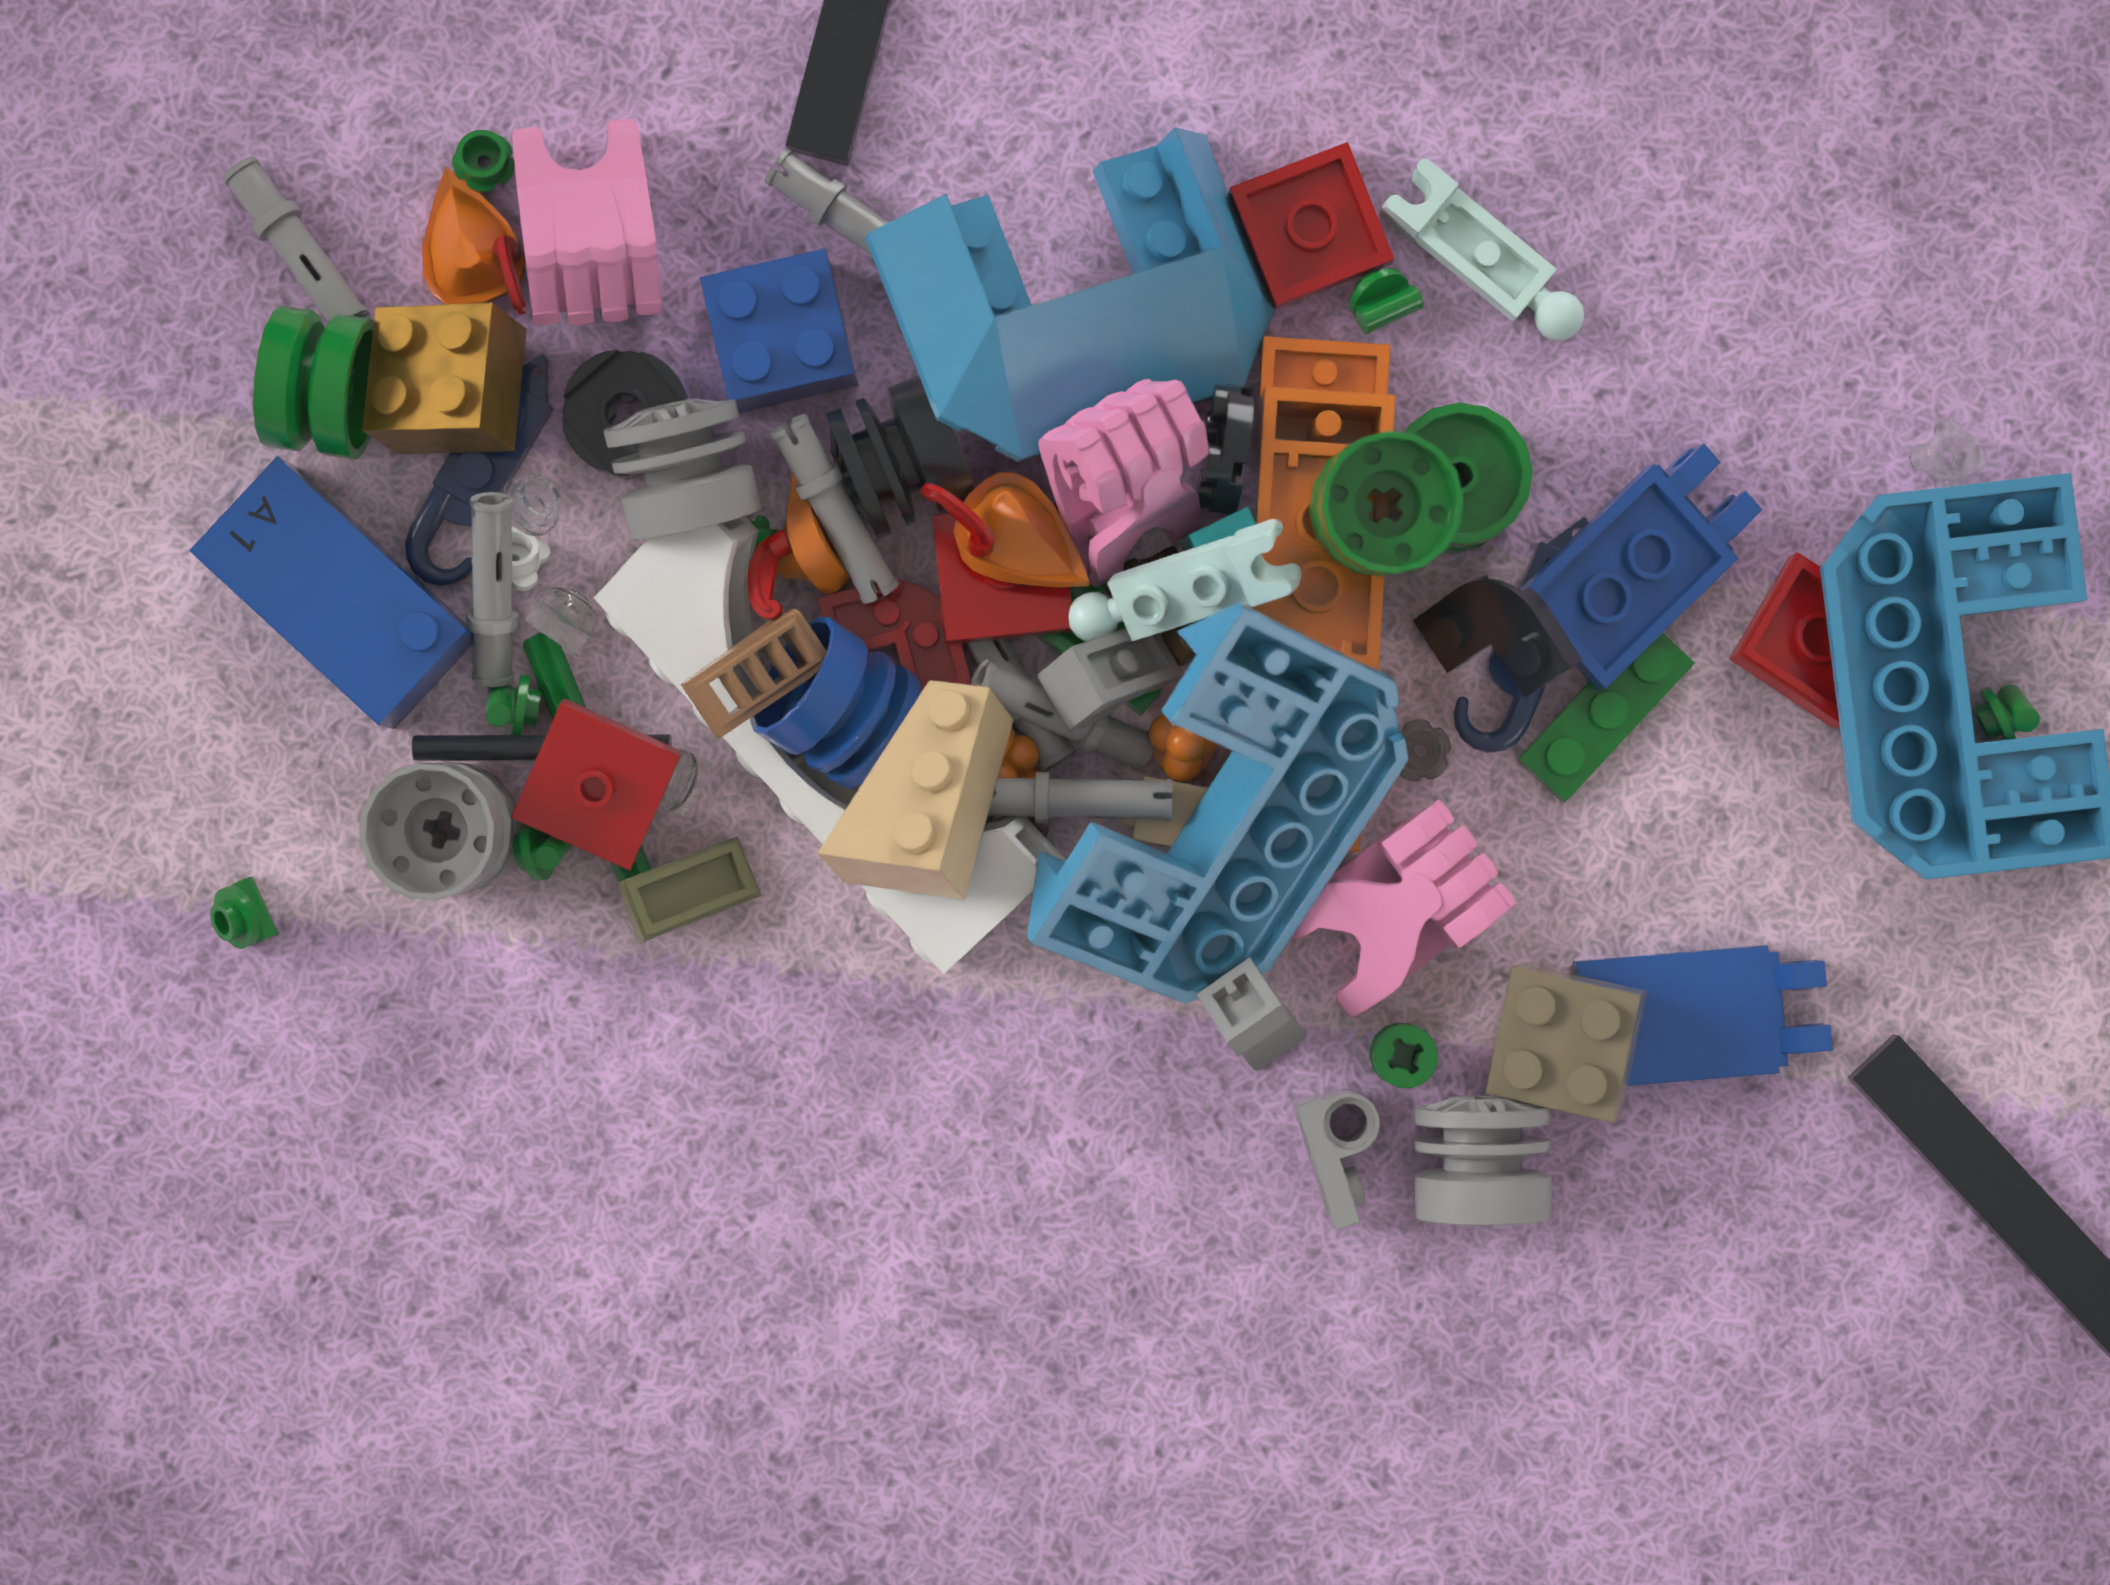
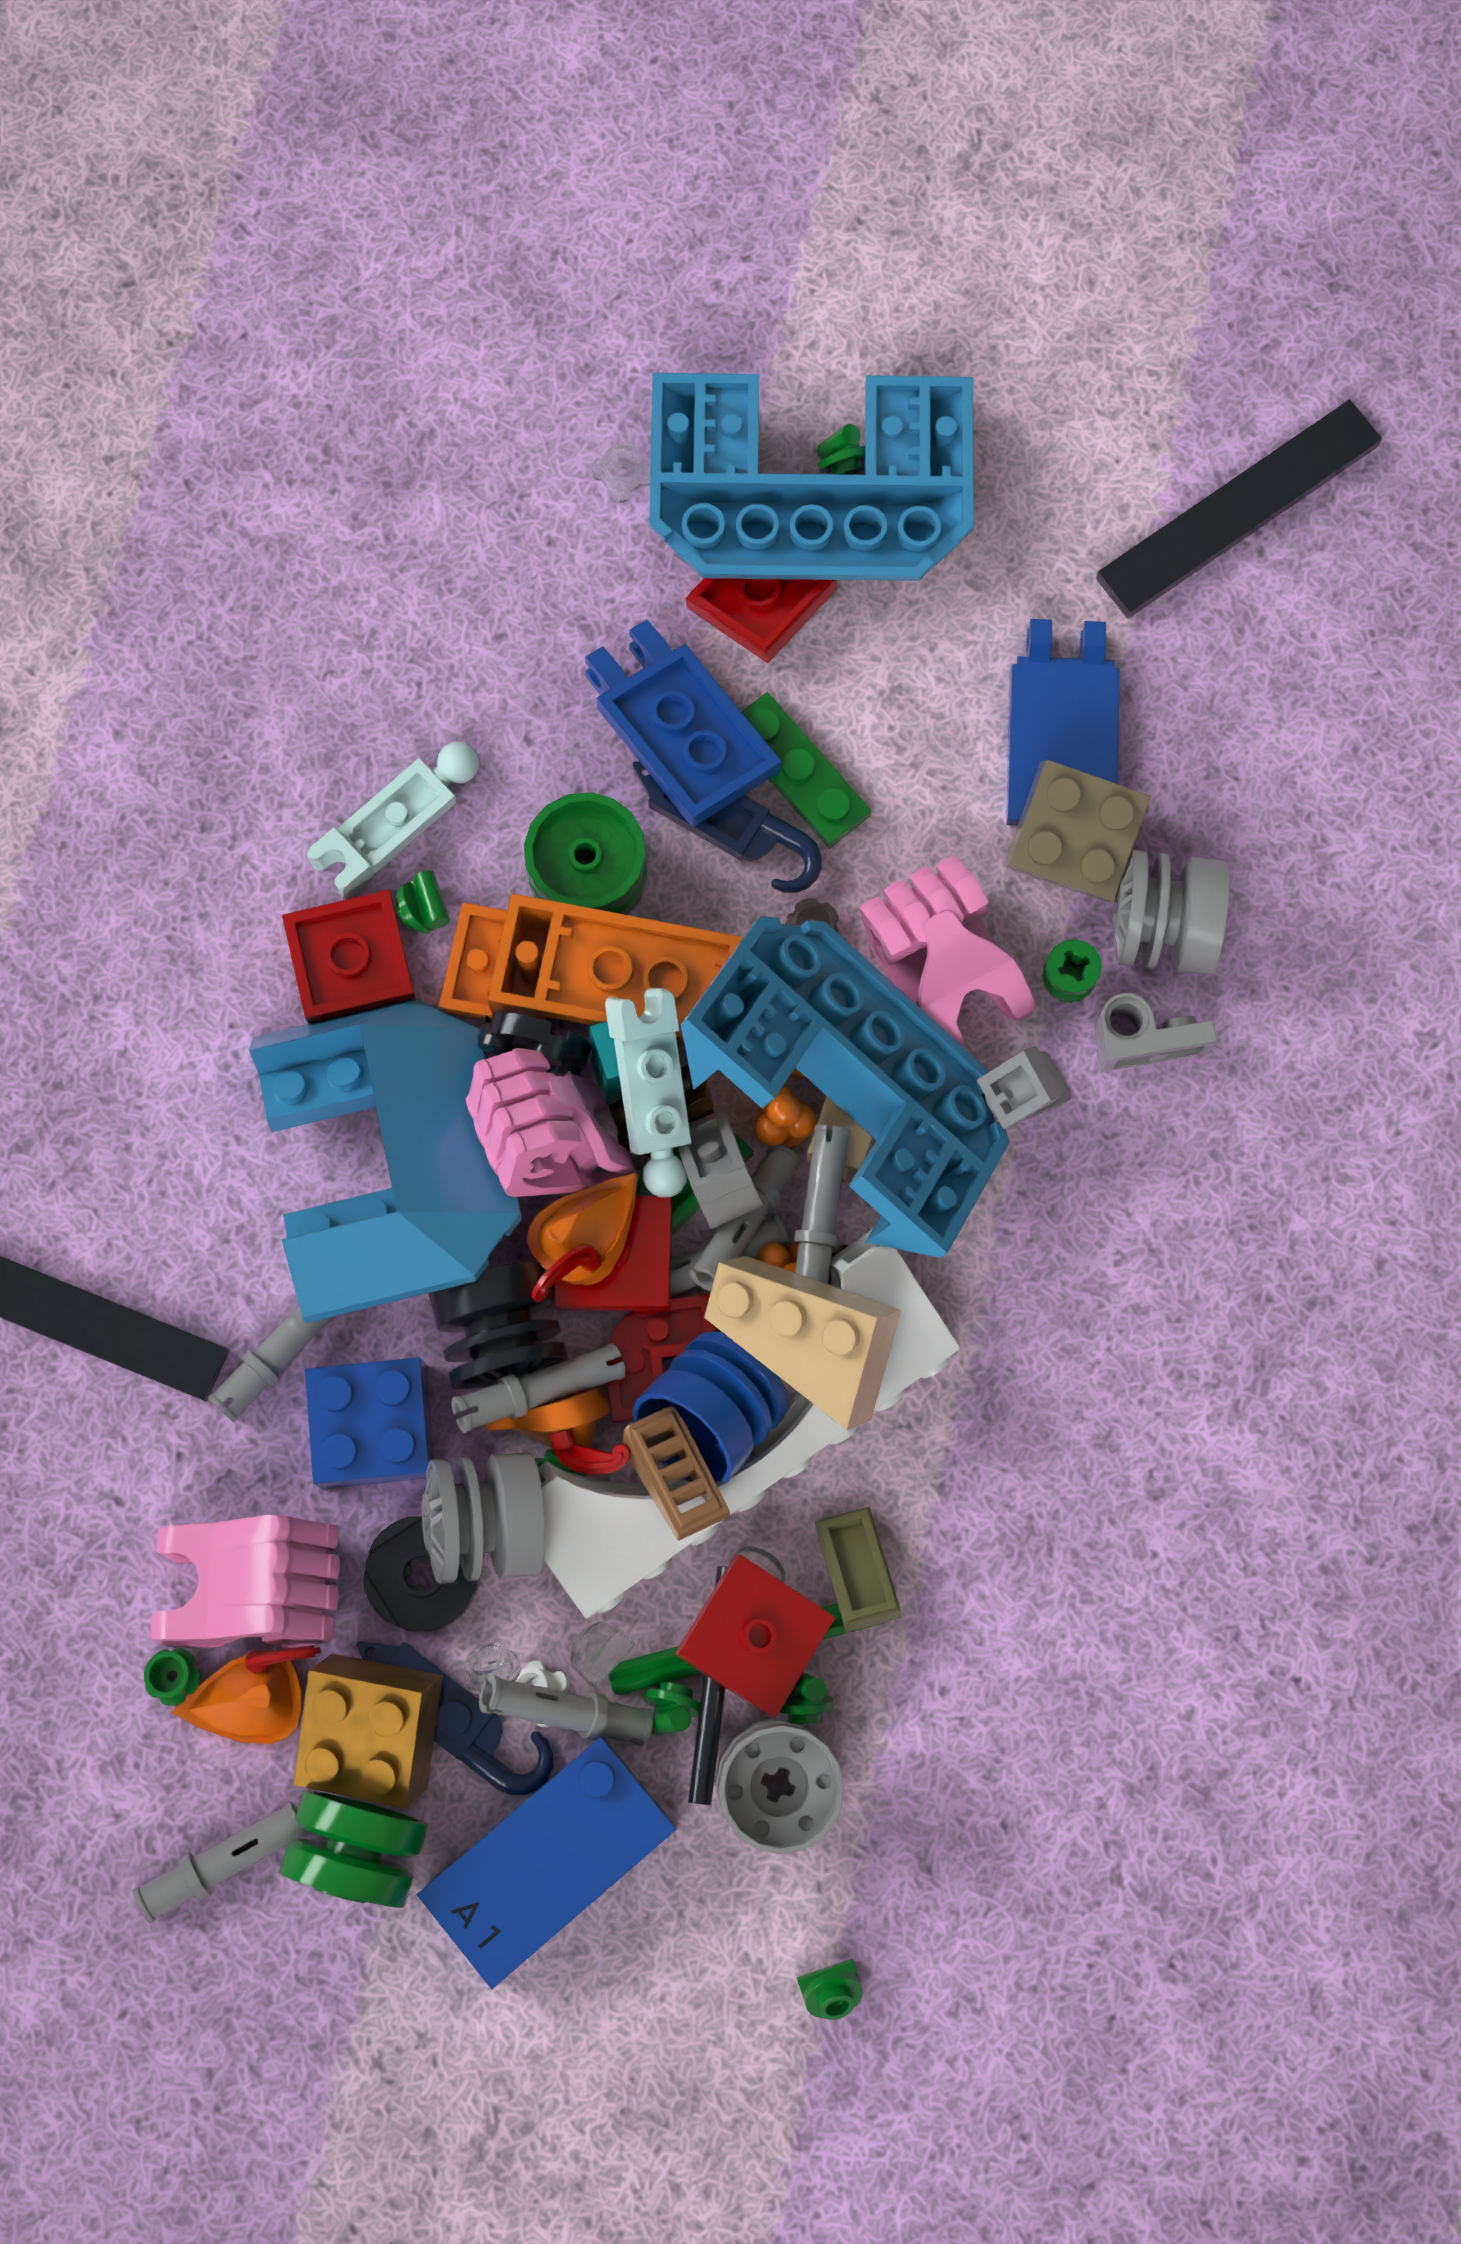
camera: 80 degrees left, 10 degrees down
(1424, 504) = (608, 874): green wheel -> none
(1507, 619) = (713, 829): black plate -> none

